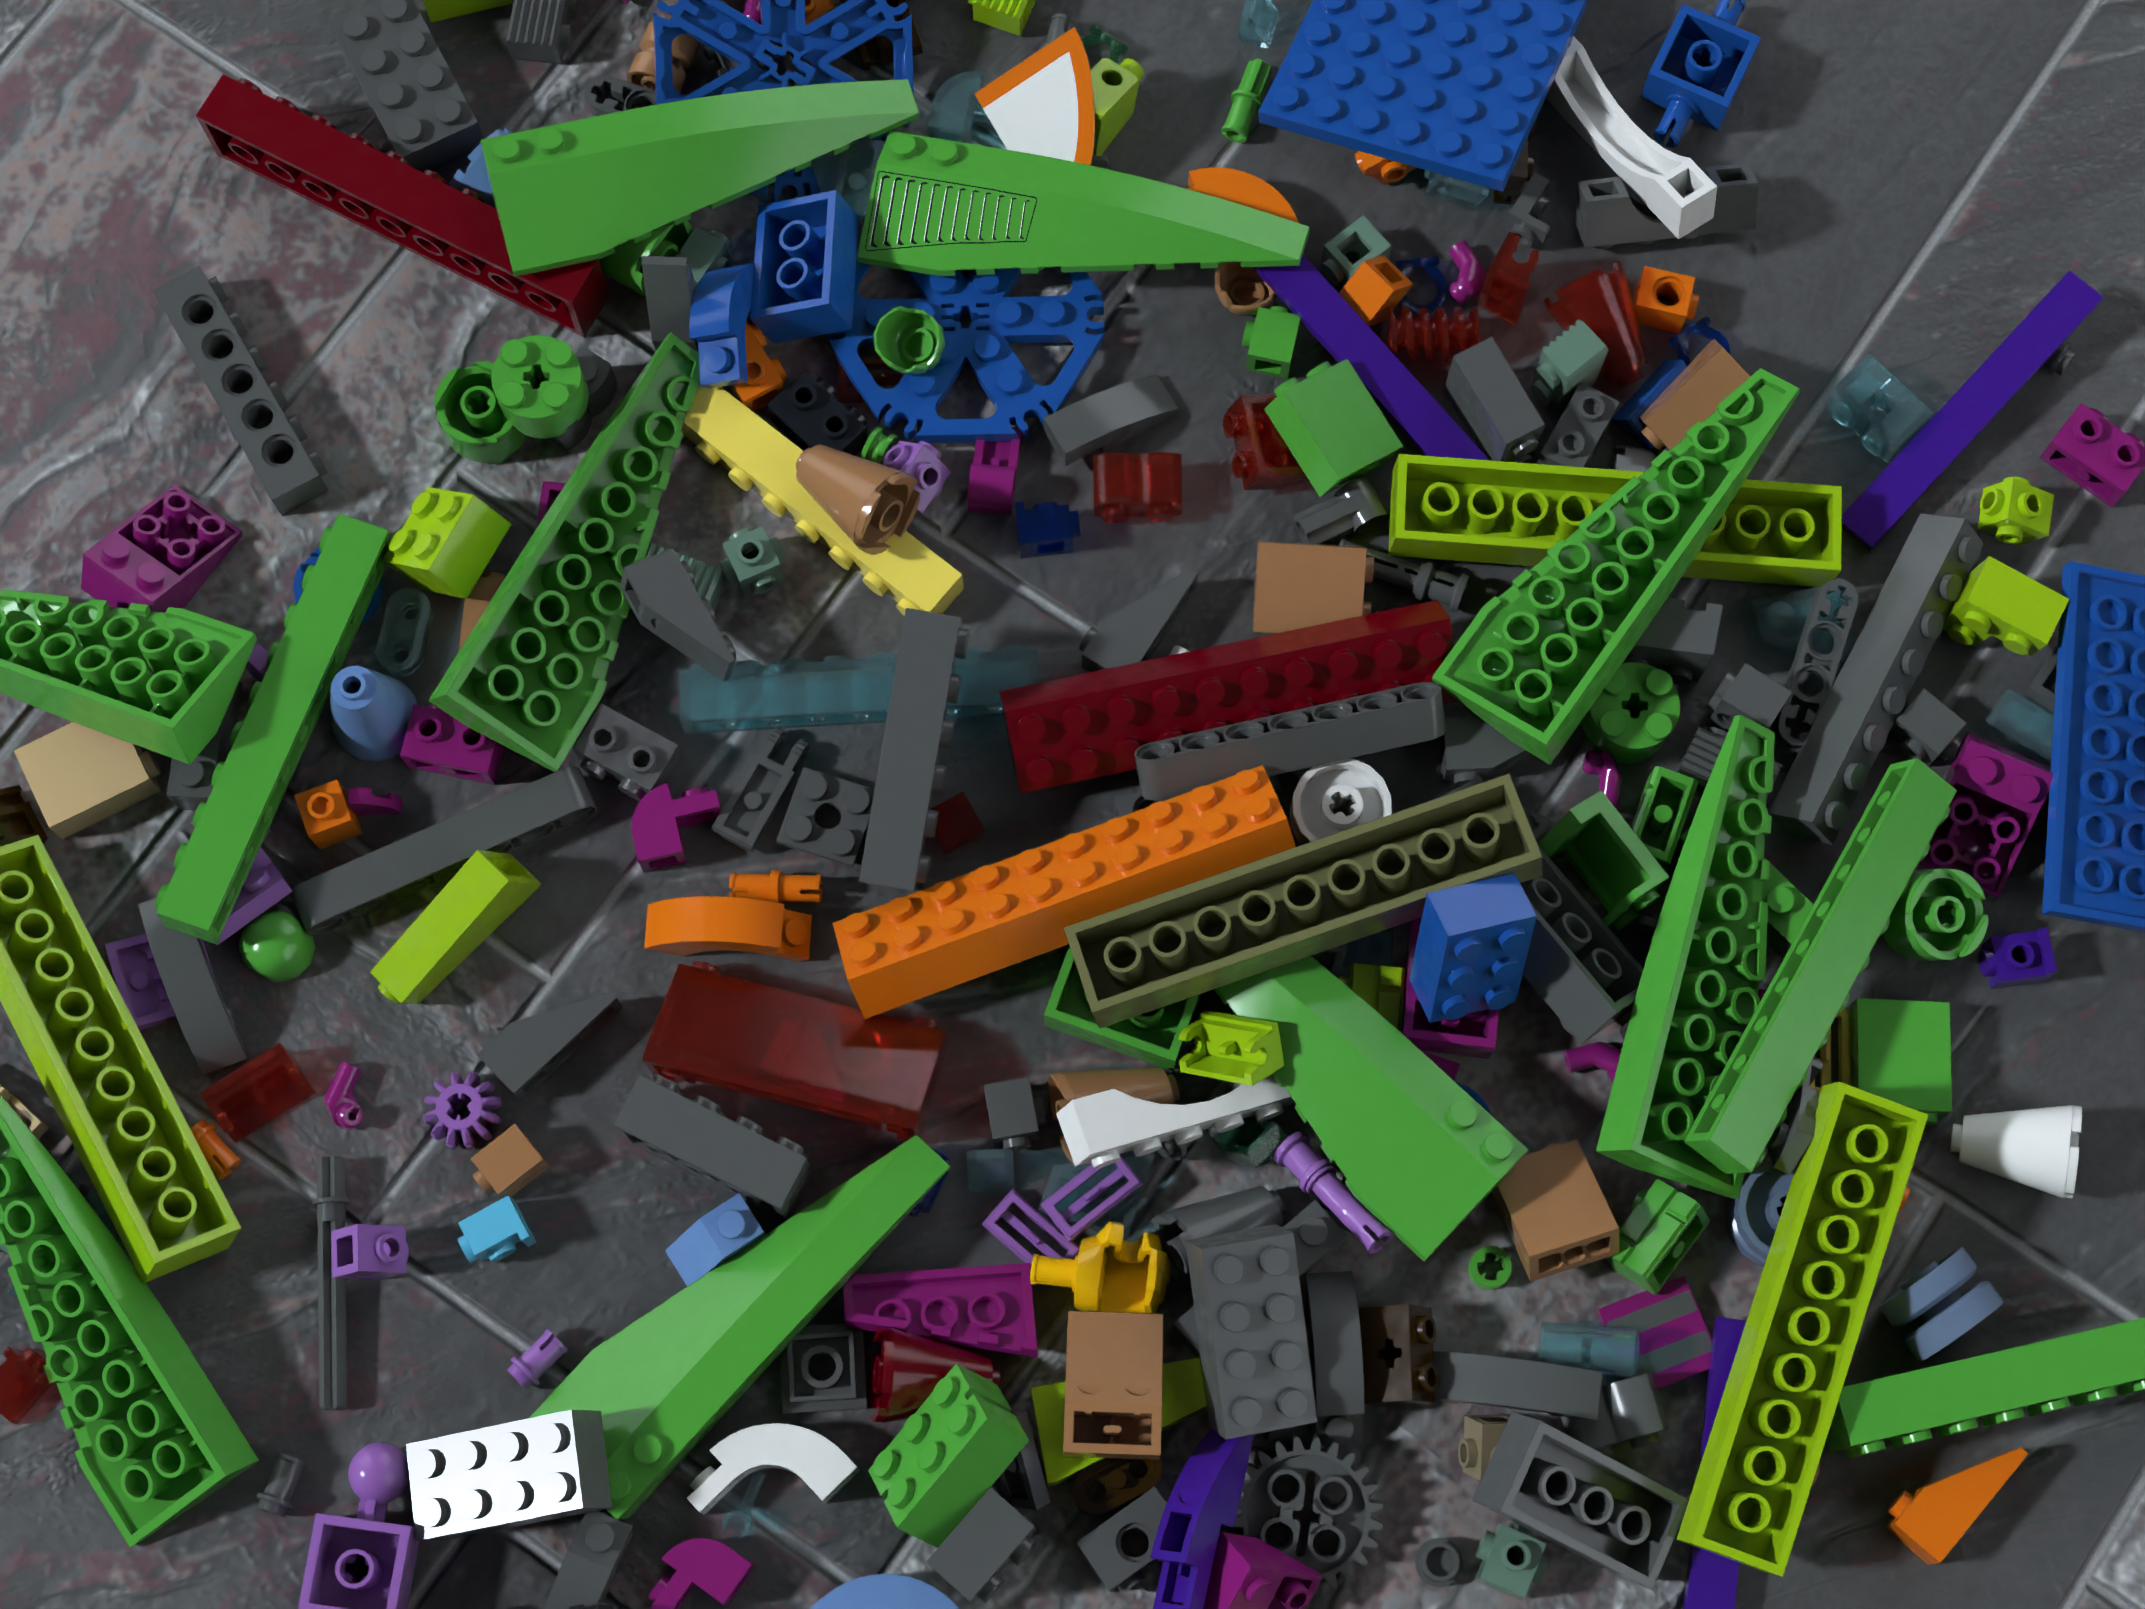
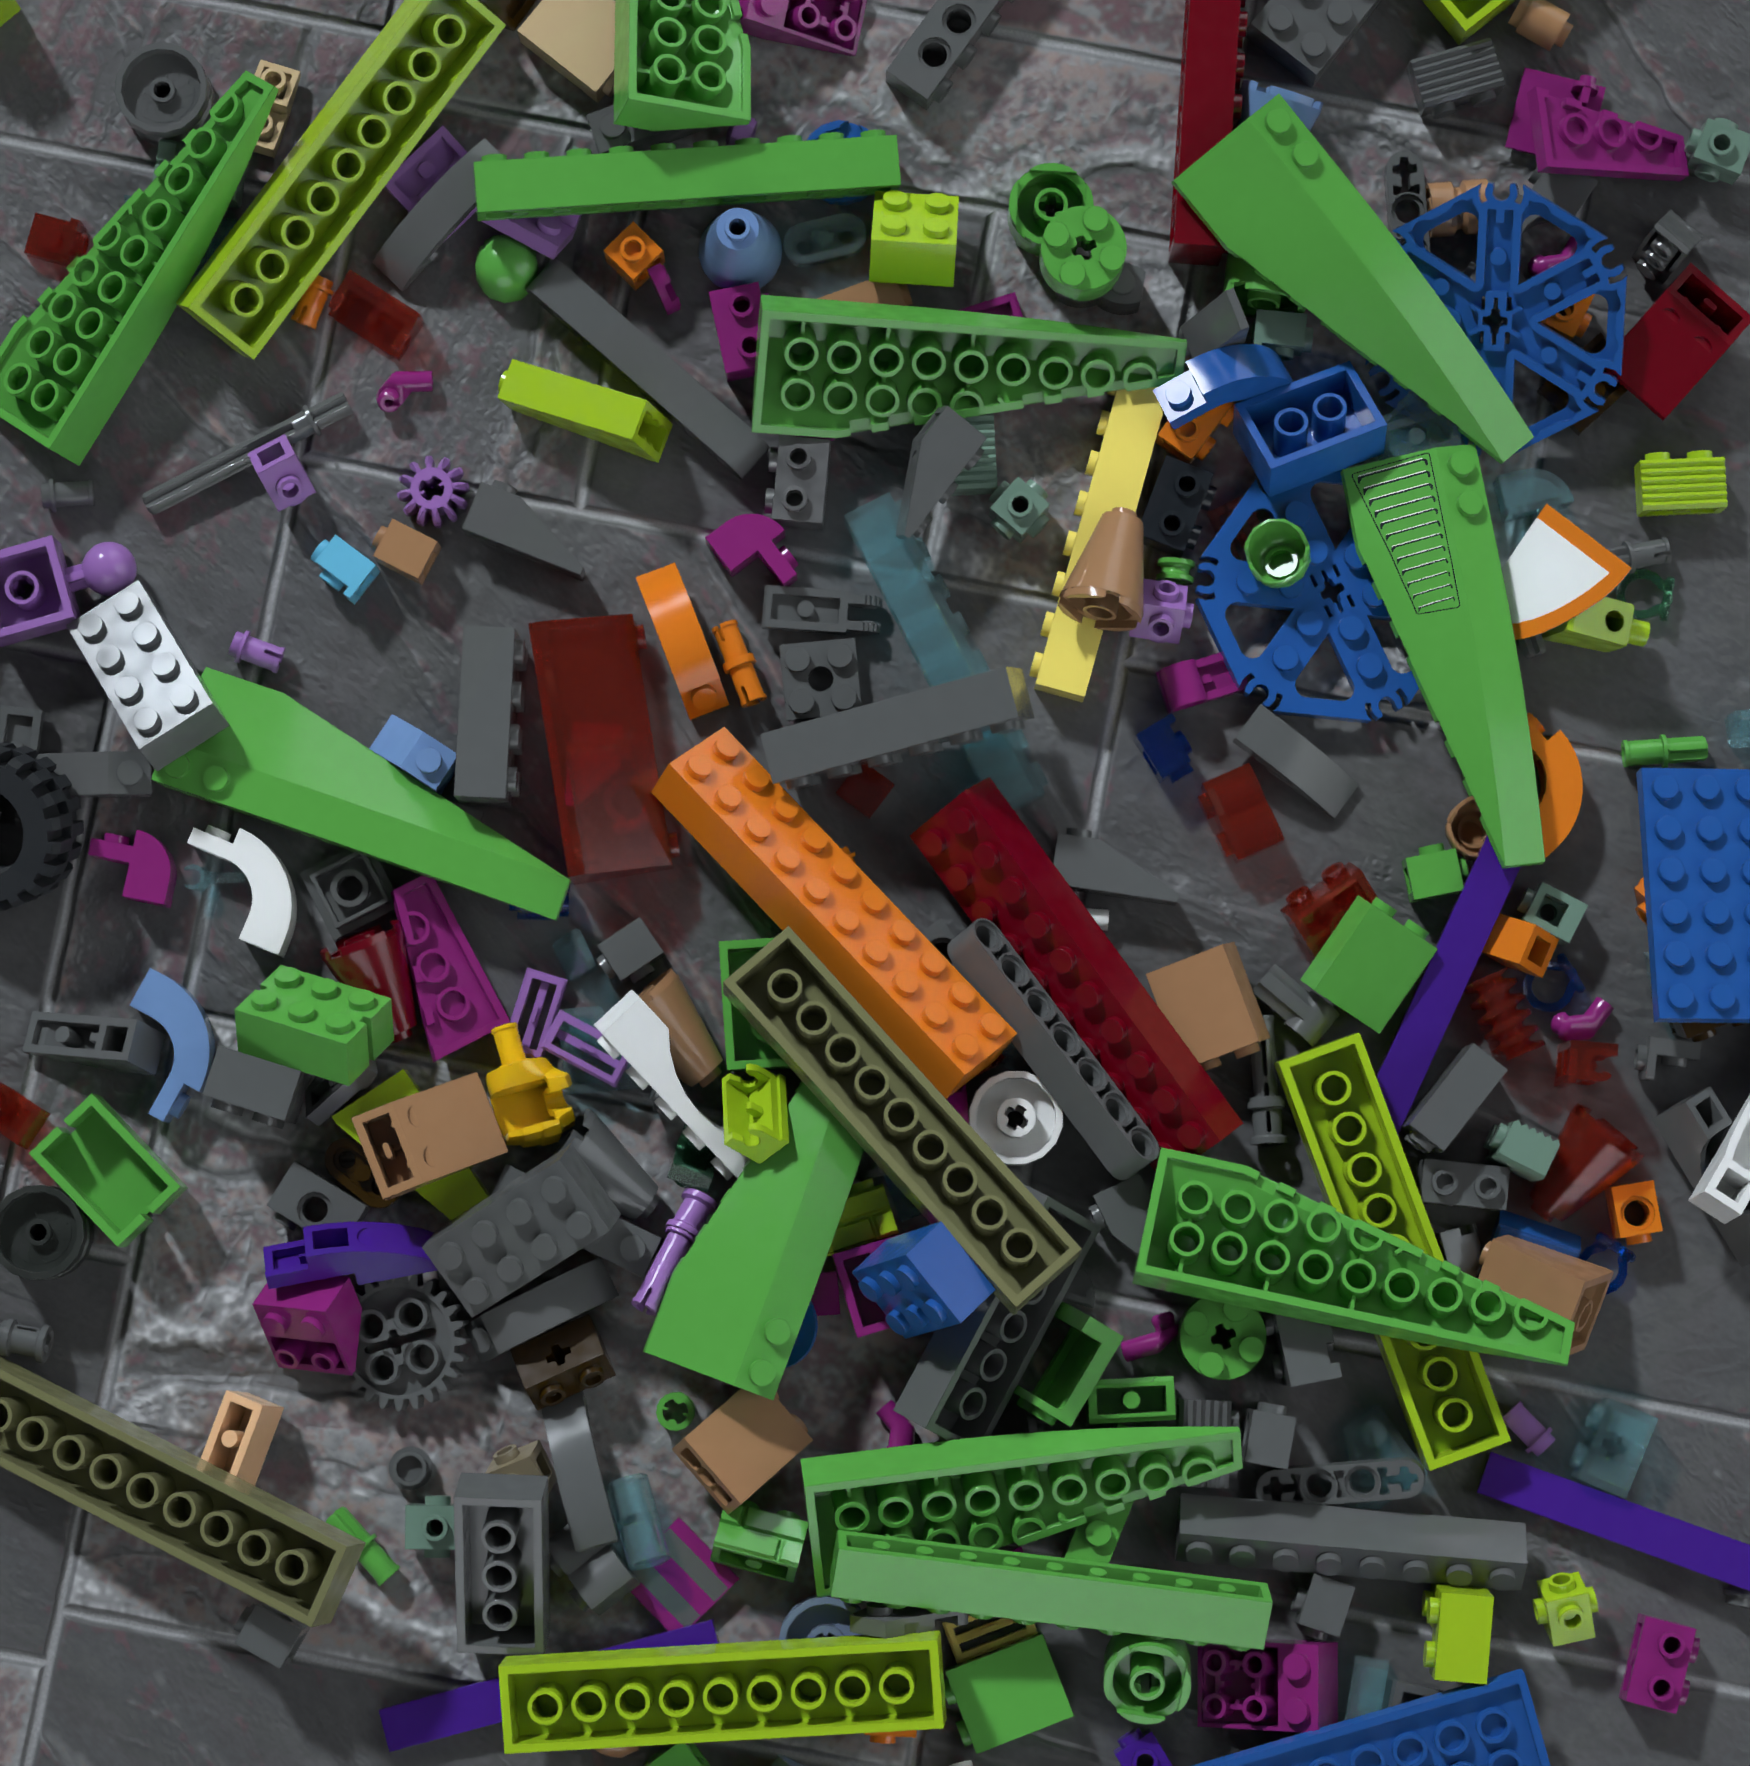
camera: 65 degrees right, 10 degrees up
(1842, 473) = (1528, 1429): none -> medium lavender pin

